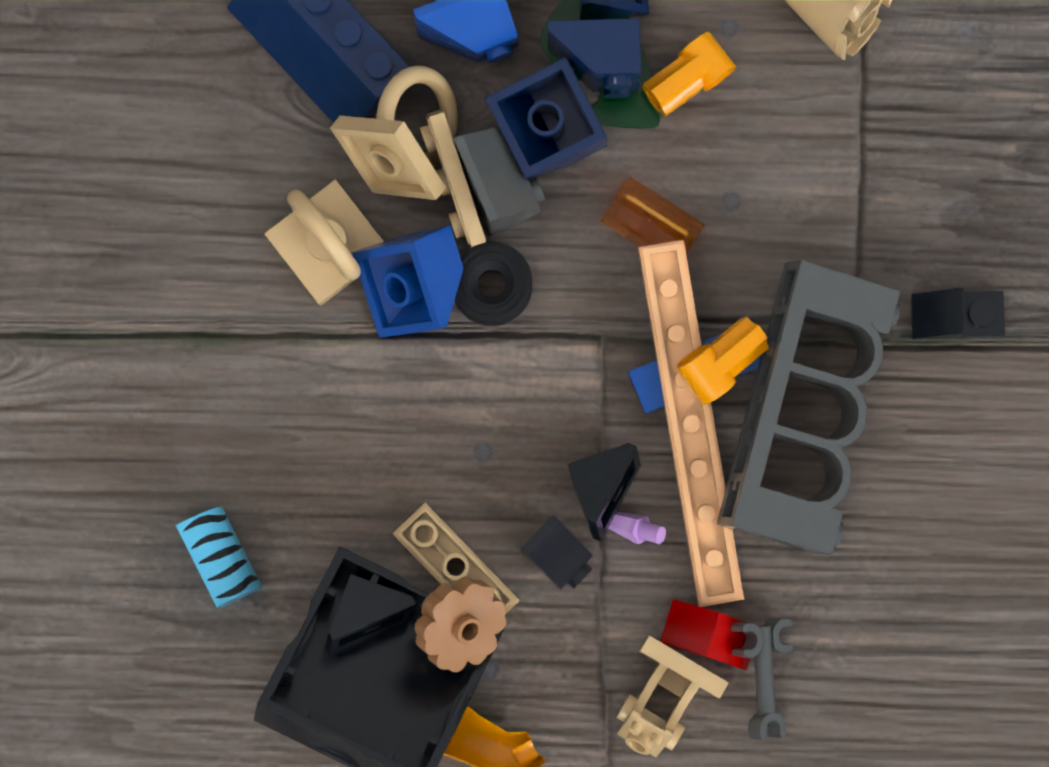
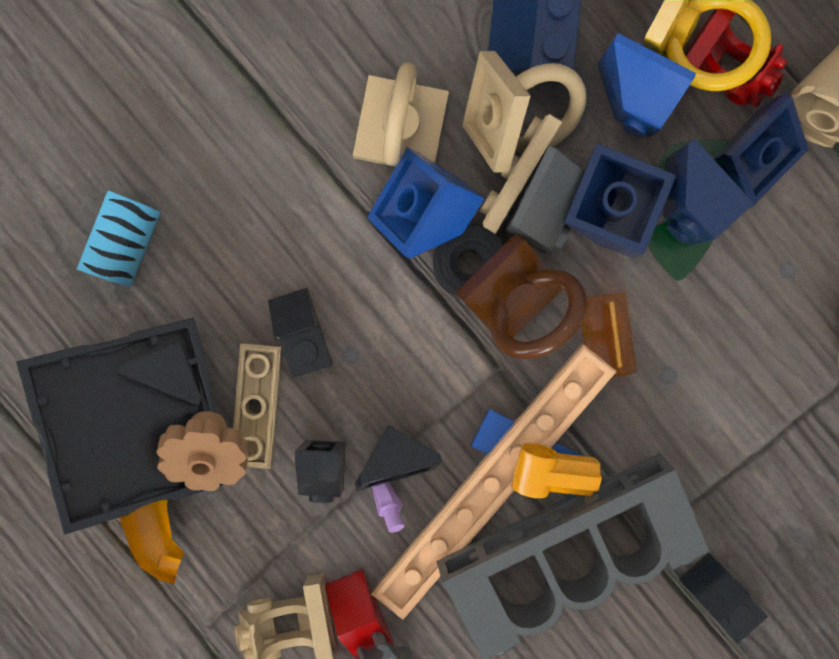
camera: 45 degrees right, 5 degrees up
(427, 476) = (299, 332): none -> black slope
(547, 266) = (513, 291): none -> reddish brown tile
(699, 67) = (743, 273): light orange piece -> none

